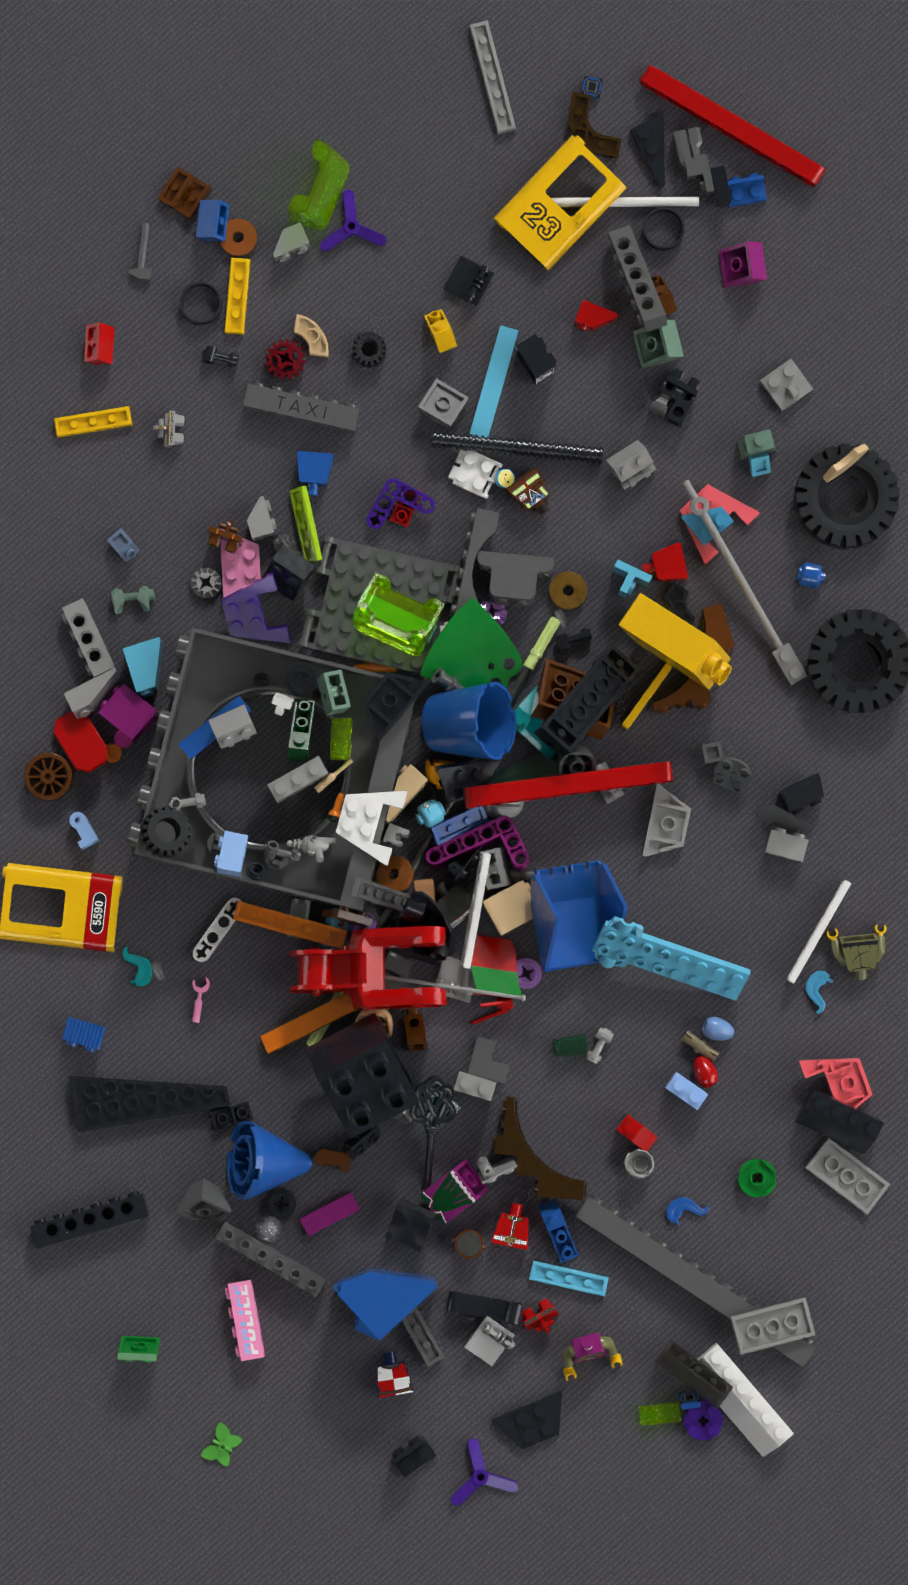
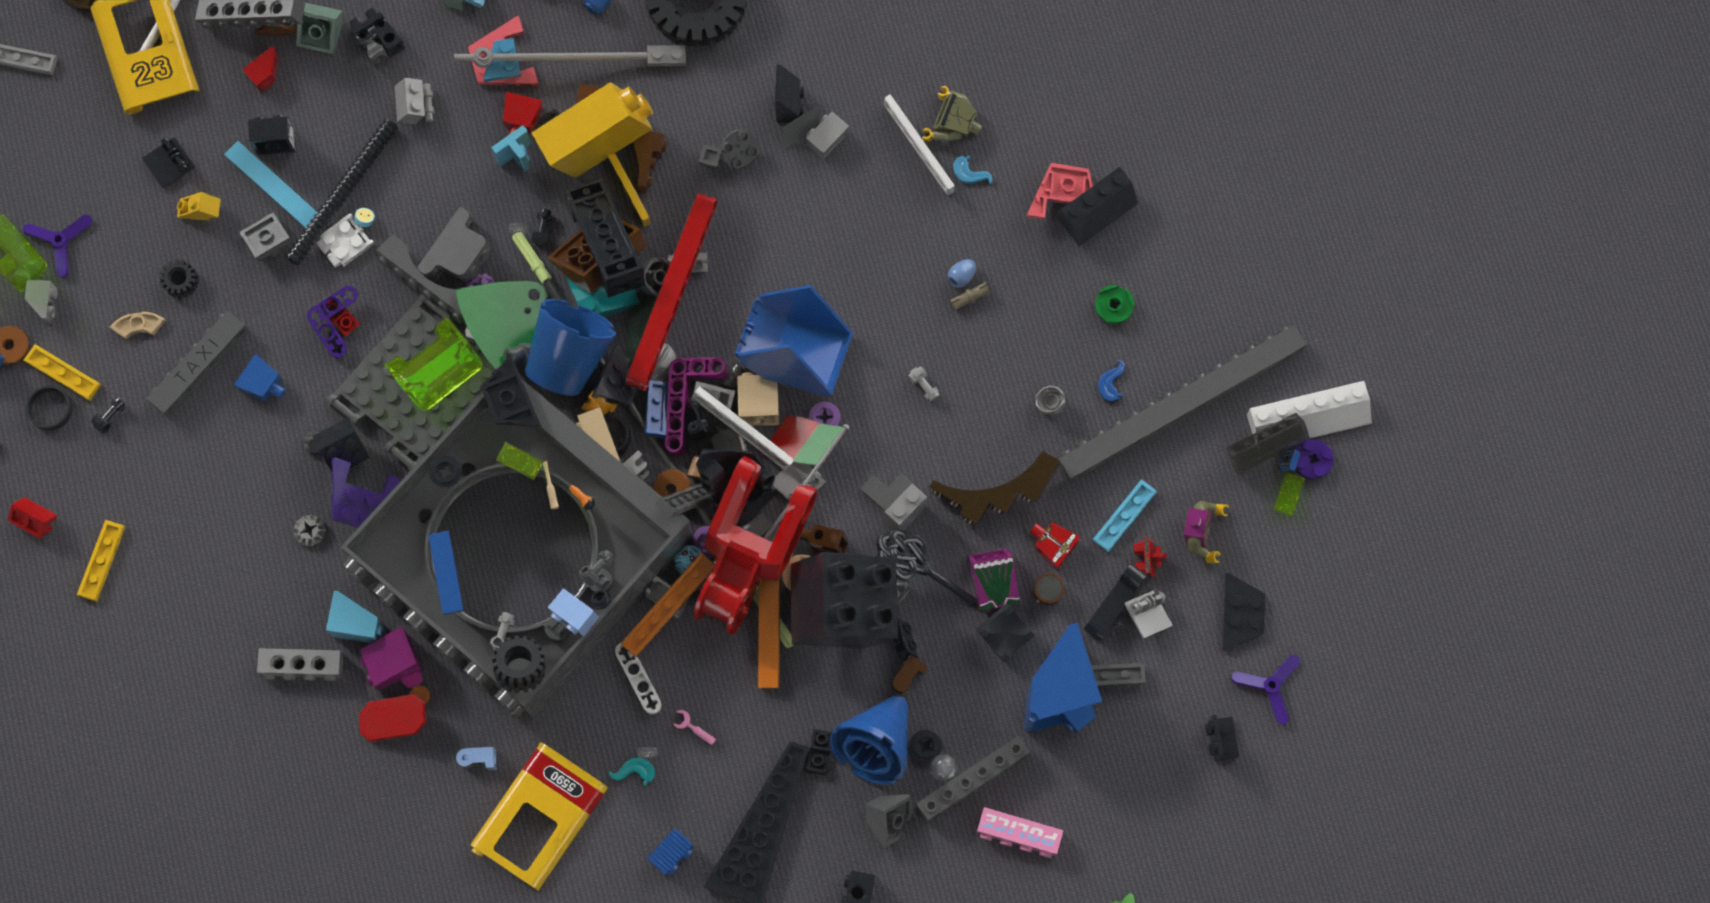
camera: 65 degrees left, 10 degrees down
(48, 776) = (409, 765): reddish brown wheel -> none
(89, 695) = (353, 689): light grey slope -> none
(123, 545) = (231, 588): sand blue bracket -> none
(144, 596) = (289, 592): sand green piece -> none
(166, 429) = (146, 494): light grey hips -> none
(217, 535) = (274, 486): reddish brown hips -> none
(232, 727) = (454, 552): light grey brick -> none
(240, 568) = (307, 491): bright pink wing -> none
(259, 520) = (281, 452): light grey slope -> none
(282, 702) = (456, 497): white tile -> none
(295, 366) = (152, 352): dark red gear -> none
(298, 779) = (536, 518): light grey brick -> none
(301, 730) = (492, 493): dark green slope -> none
(305, 524) = (304, 411): lime tile -> none
(312, 845) = (605, 536): light grey piece -> none
(330, 1214) = (957, 704): magenta tile -> none
(333, 692) = (472, 445): sand green brick -> none
(344, 915) = (687, 546): reddish brown wing -> none
(361, 817) = (603, 478): white wing -> none
(393, 1377) = (1140, 720): torso -> none
(430, 813) = (632, 427): medium azure head -> none
(489, 1173) = (992, 534): light grey hinge -> none
(501, 1002) = (840, 451): red plant -> none
(530, 492) = (389, 200): torso -> none
(558, 1230) = (1075, 502): blue slope -> none
(568, 579) = (491, 202): pearl gold tile -> none
(570, 1045) = (911, 409): clear green piece -> none
(627, 944) = (845, 307): medium azure piece -> none
(636, 1133) = (1019, 390): red slope -> none
(666, 823) = (752, 227): light grey wing -> none
(686, 1091) = (1004, 326): light blue brick -> none
(705, 1072) = (995, 302): red animal -> none
(772, 1325) = (1256, 352): light grey tile -> none
(847, 1176) = (1151, 227): light grey tile -> none

